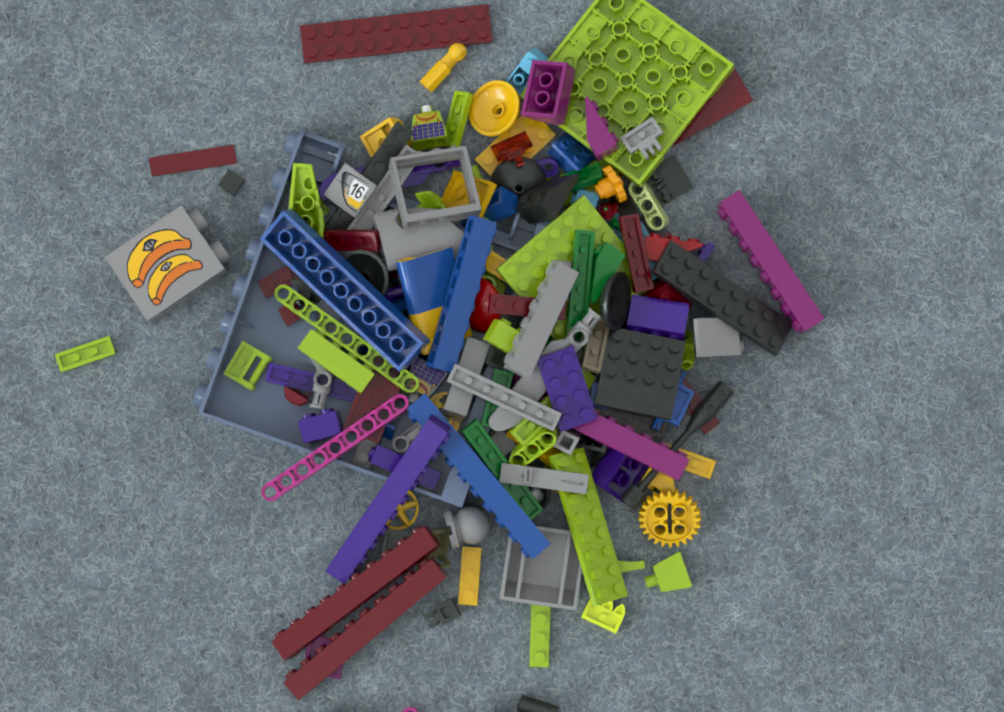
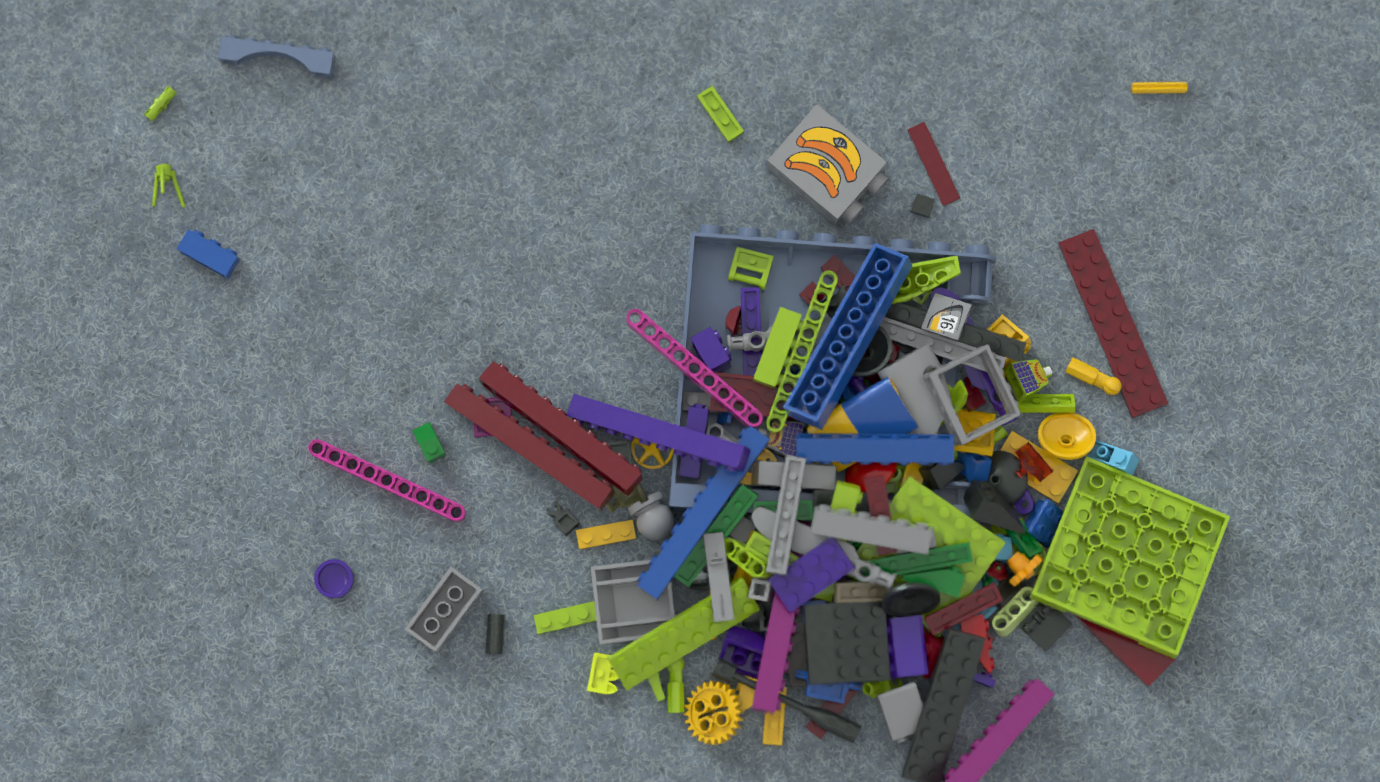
camera: 80 degrees right, 5 degrees down
(353, 239) = (899, 331): dark red plate -> none
(434, 184) = (975, 399): none -> dark red plate
(503, 242) = (937, 475): none -> pearl dark grey slope
(548, 91) = (1097, 481): magenta slope -> none
(598, 136) = (1069, 539): magenta slope -> none
(636, 547) = (676, 687): none -> lime piece
(643, 138) = (1078, 585): light grey hinge -> none
(669, 574) = (658, 727): lime torso -> none

